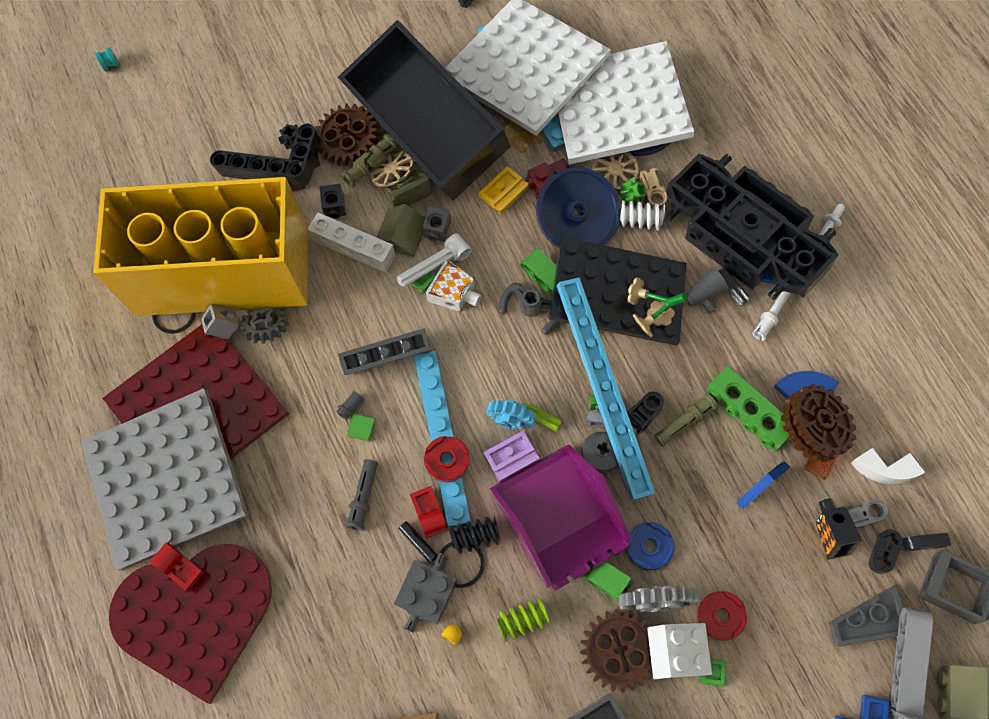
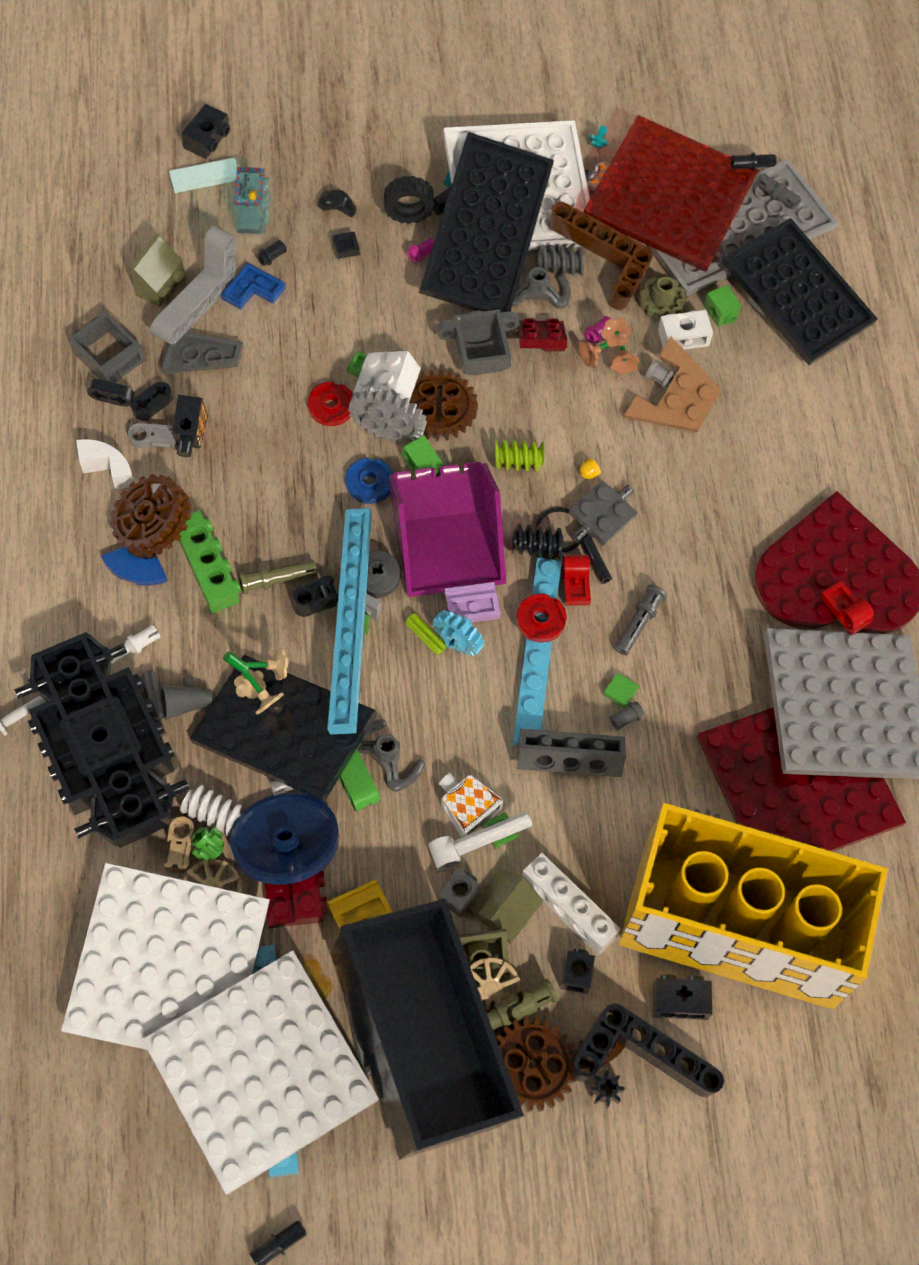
camera: 170 degrees left, 5 degrees down
(765, 482) = (233, 480): blue tile -> none

